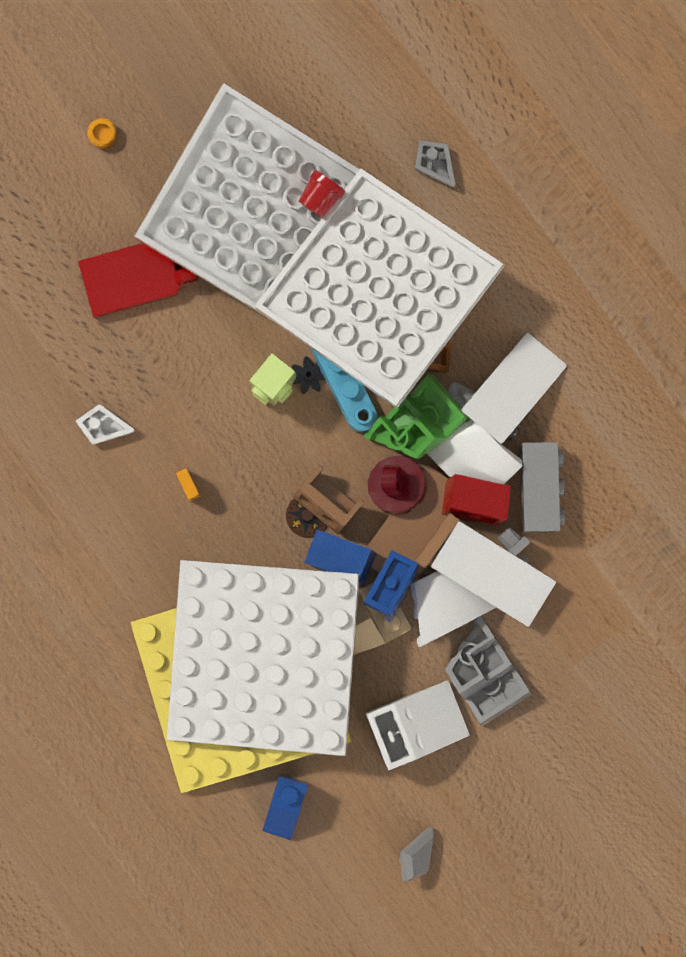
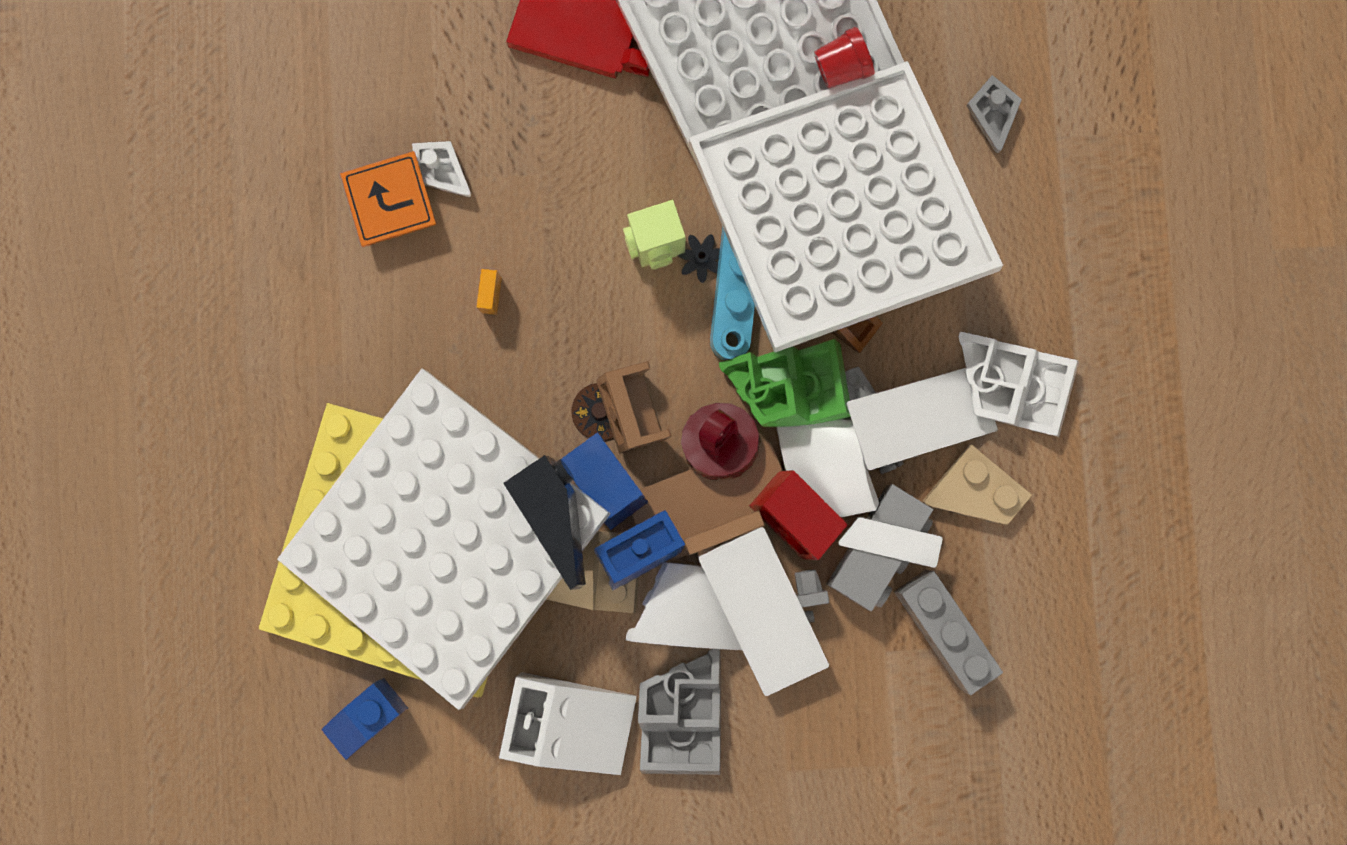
camera: 40 degrees right, 0 degrees up
(84, 466) = (388, 199): none -> orange piece
(322, 593) = (551, 510): none -> black slope
(545, 478) = (893, 542): none -> white sticker
(560, 328) = (1018, 383): none -> white slope
(578, 411) = (978, 489): none -> tan wing
(616, 512) = (948, 632): none -> light grey brick

